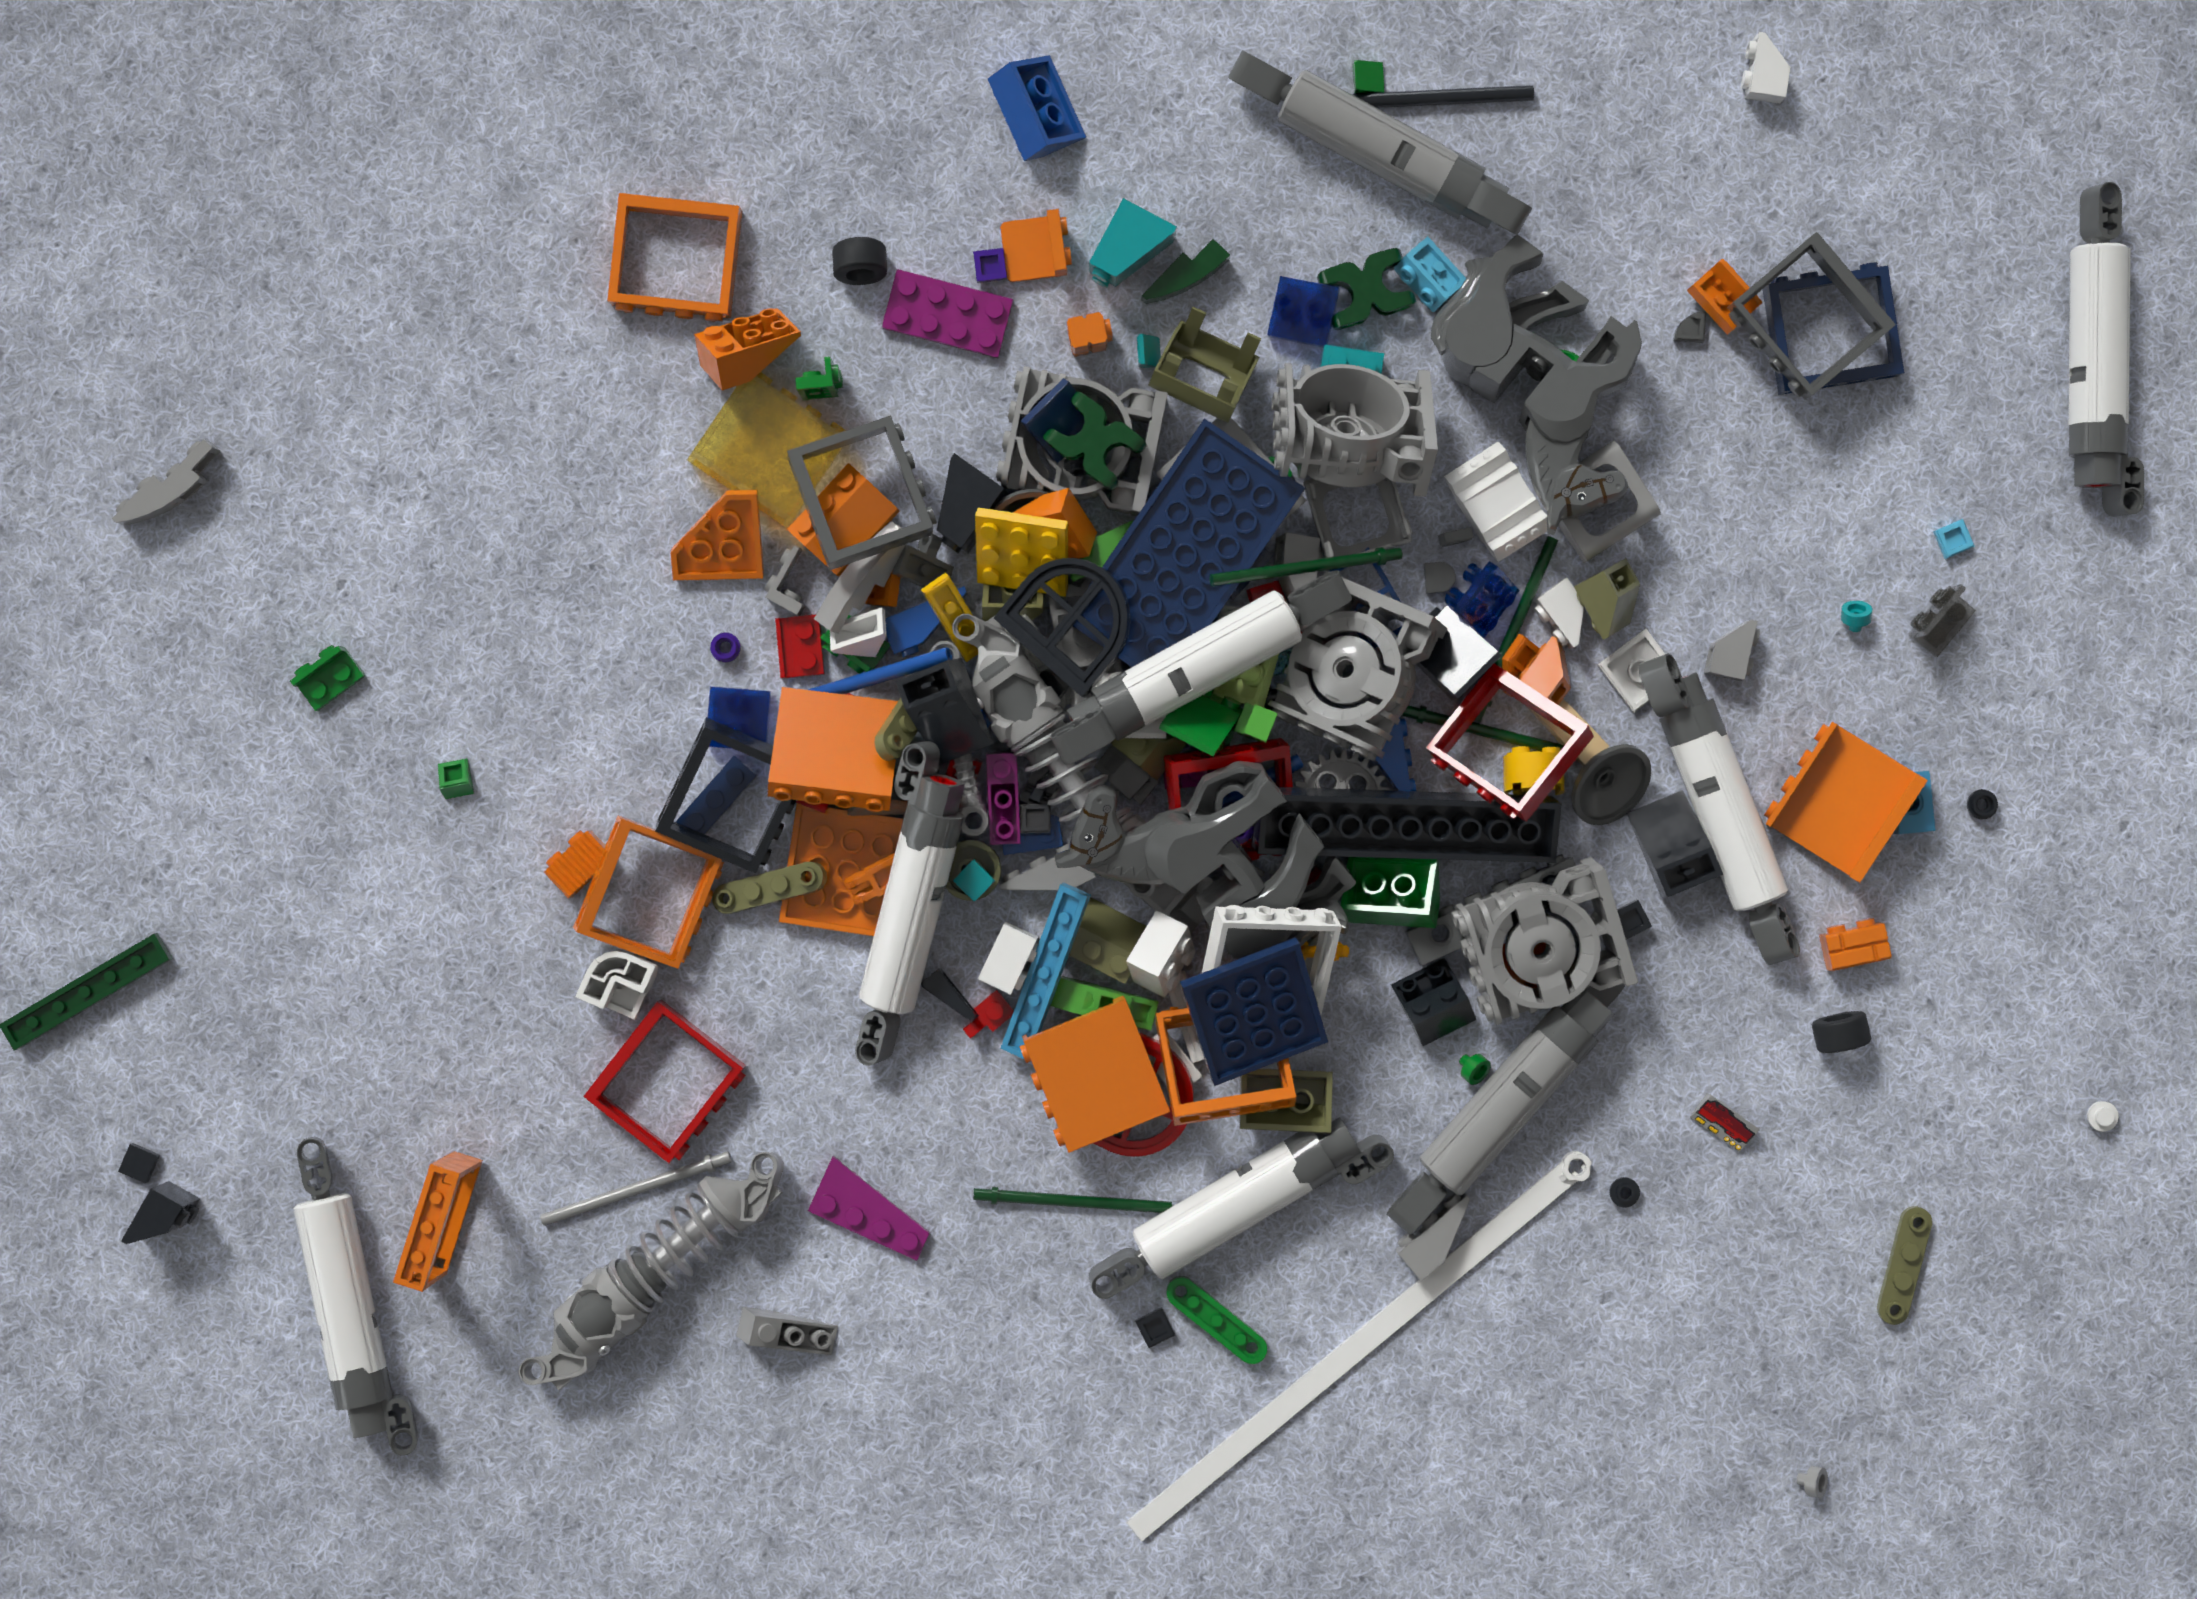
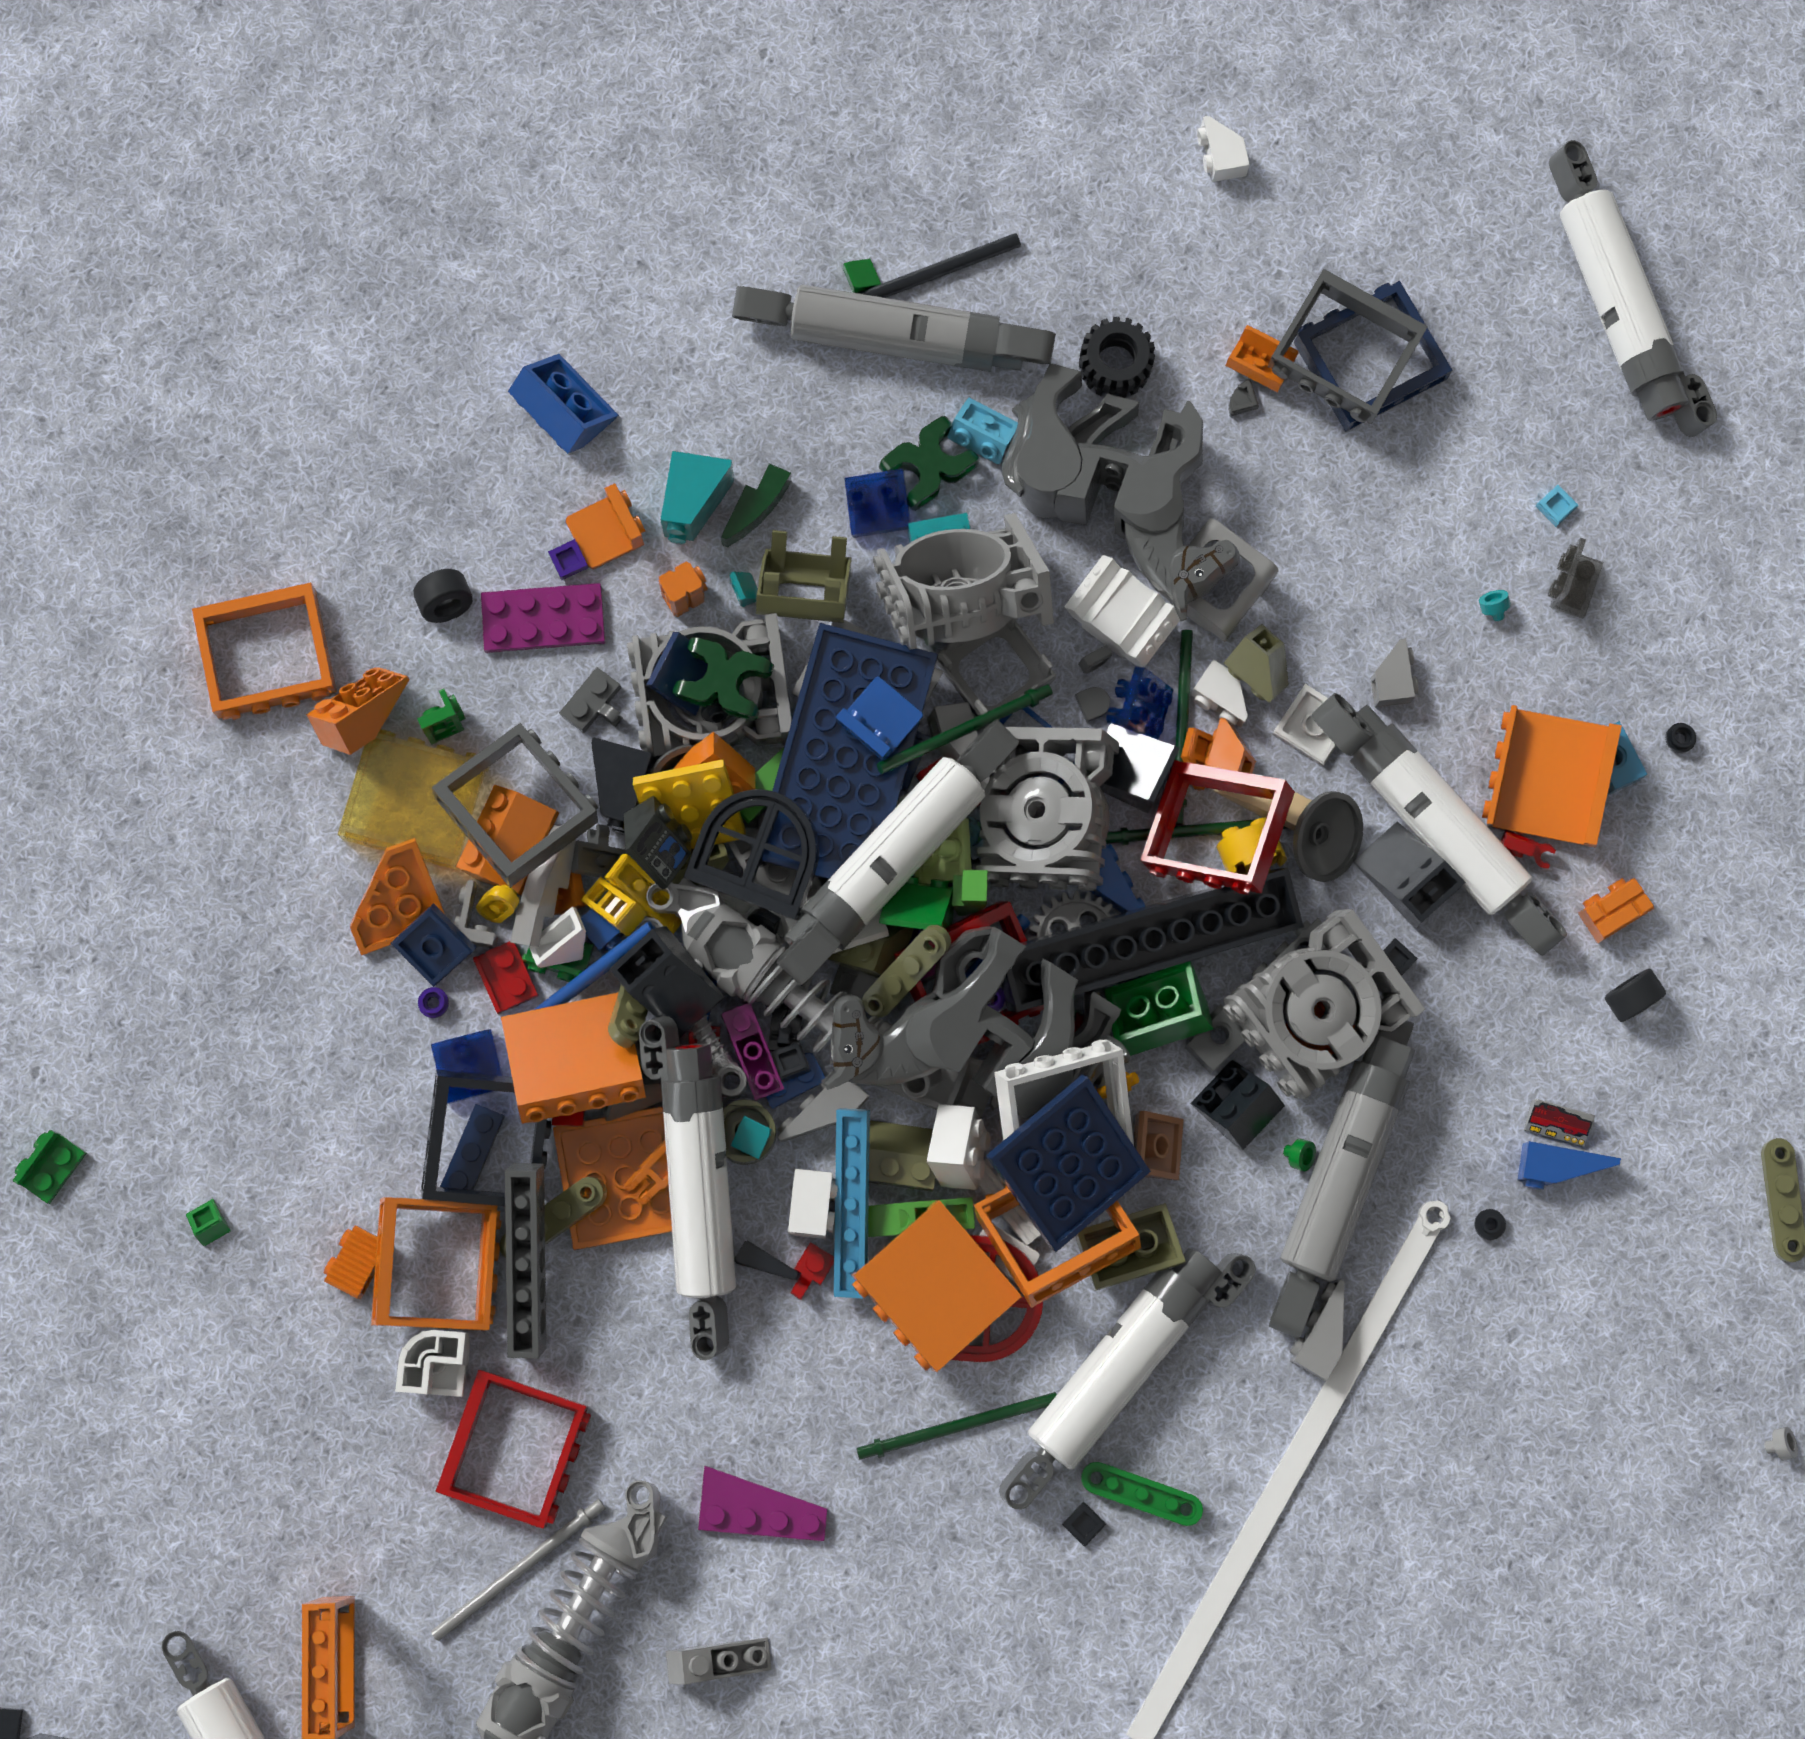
camera: 25 degrees left, 10 degrees down
(731, 919) = (525, 1260): none -> dark grey brick
(742, 595) = (433, 945): none -> dark blue tile
(814, 577) = (498, 903): none -> yellow plate
(931, 633) = (626, 918): none -> yellow slope
(967, 411) = (593, 700): none -> dark grey plate
(979, 575) = (656, 840): none -> pearl dark grey slope
(1169, 780) = (906, 971): none -> olive plate
(1228, 532) = (880, 718): none -> blue bracket
(1347, 1013) = (1159, 1143): none -> nougat slope
(1599, 226) = (1120, 335): none -> black tyre
(1704, 1161) = (1551, 1164): none -> blue slope
(1790, 854) = (1520, 845): none -> red plate

